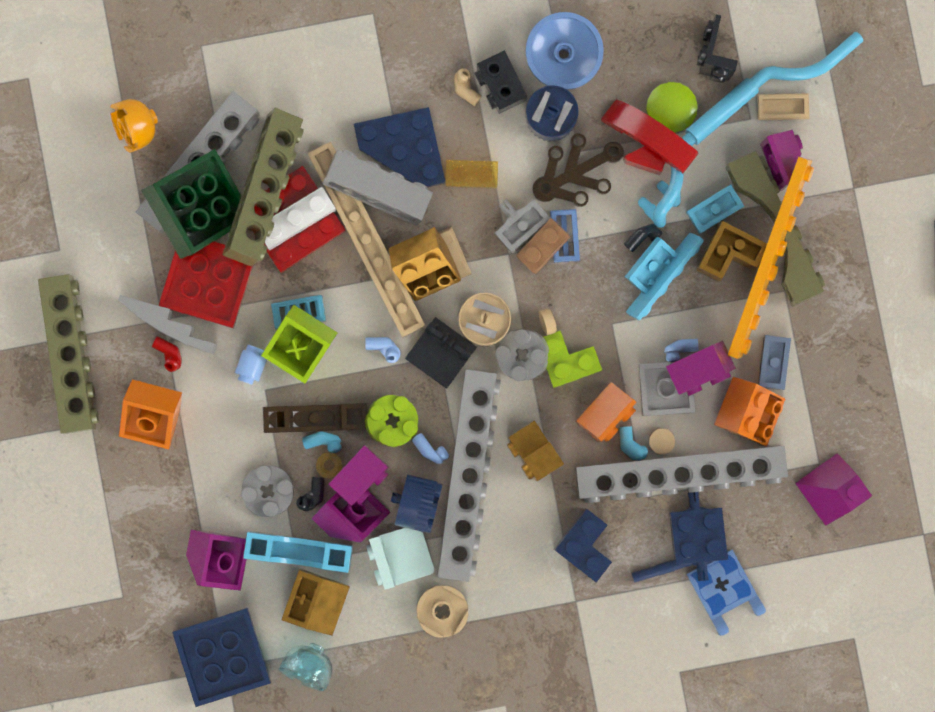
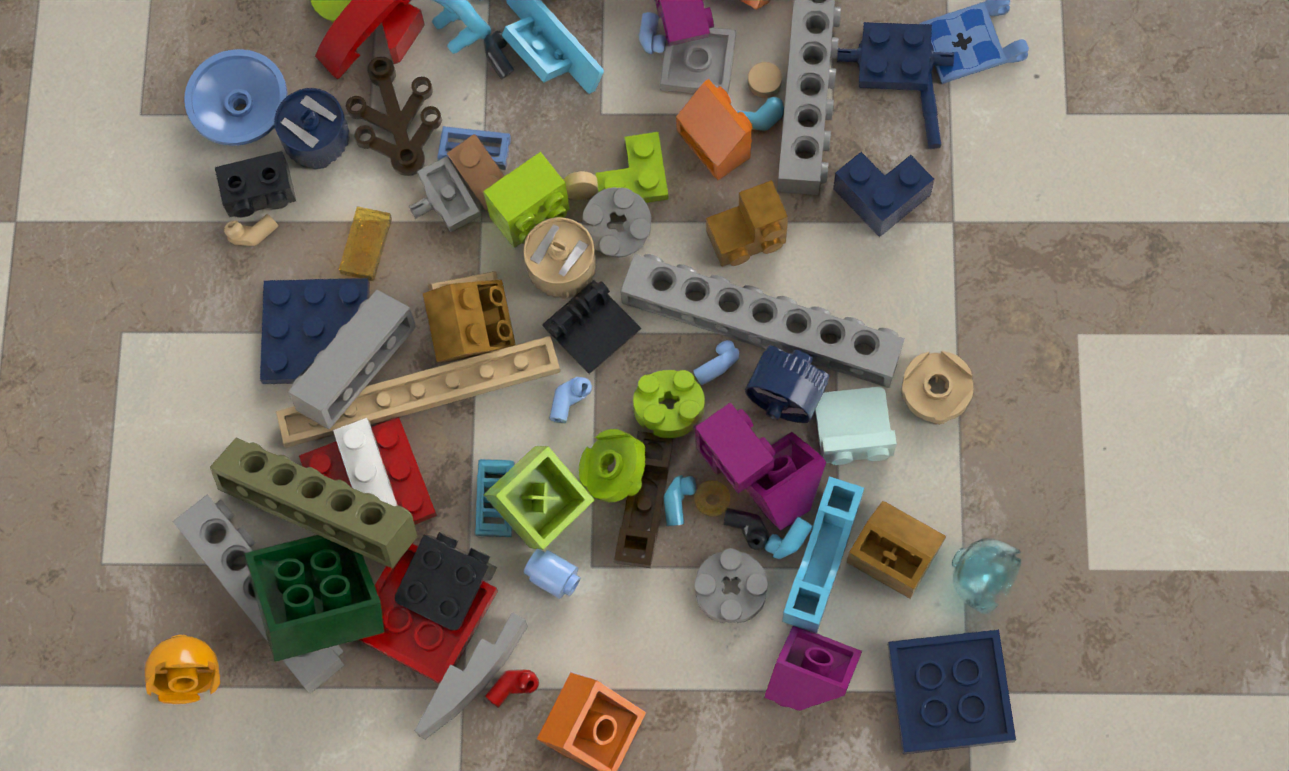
camera: 70 degrees left, 15 degrees down
(230, 290) = (443, 580): none -> black bracket
(305, 527) = (792, 540): none -> medium azure arm
(339, 402) = (627, 473): none -> lime plate
(522, 286) = (526, 198): none -> lime brick

